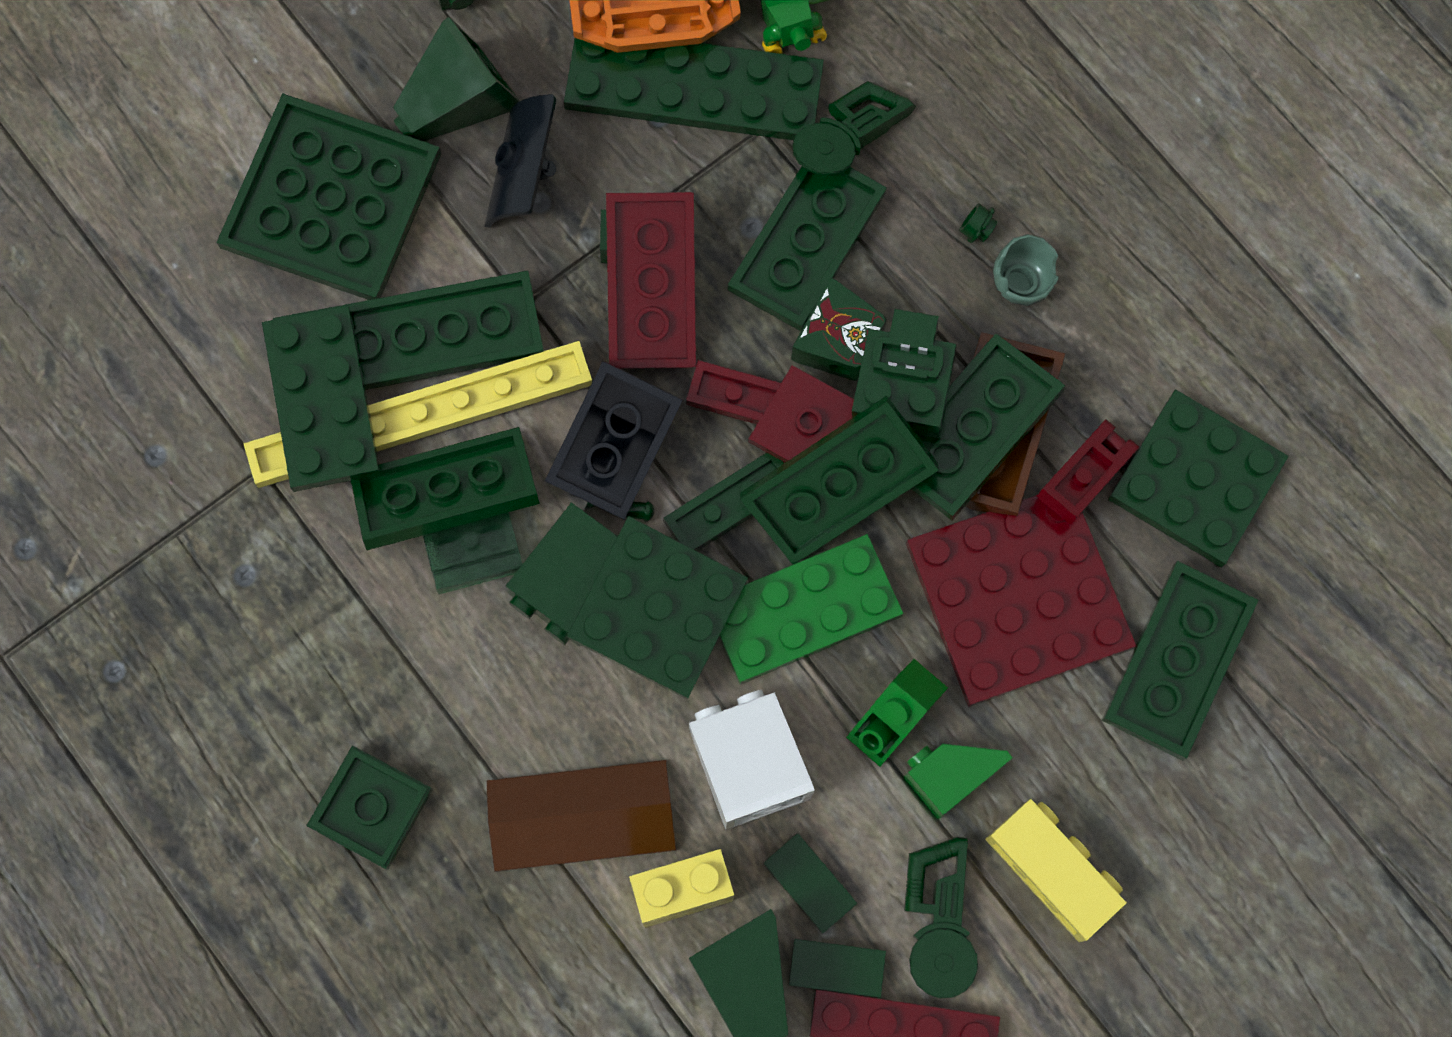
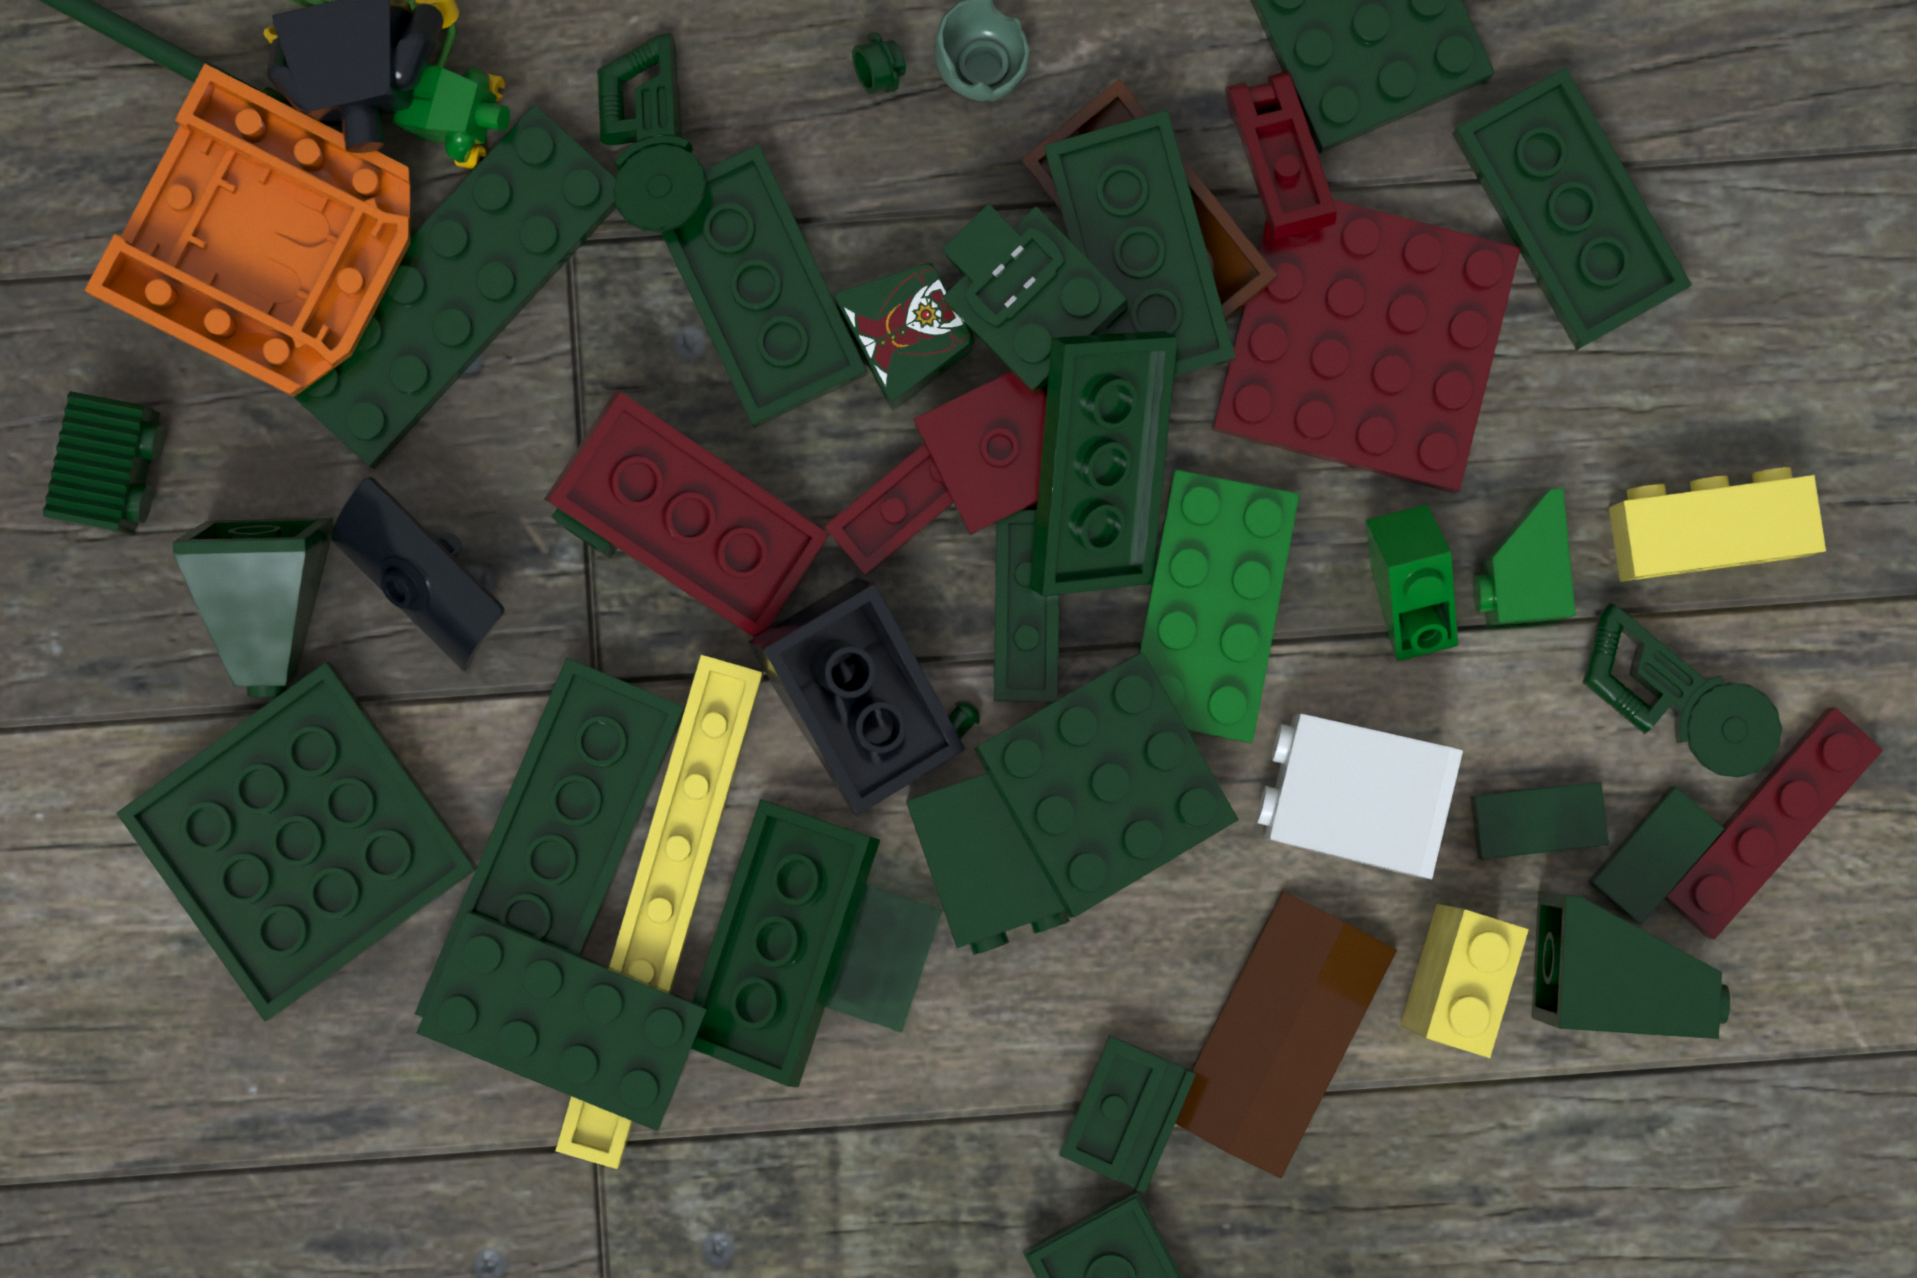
camera: 55 degrees left, 10 degrees up
(473, 752) = (1126, 1113): none -> dark green plate

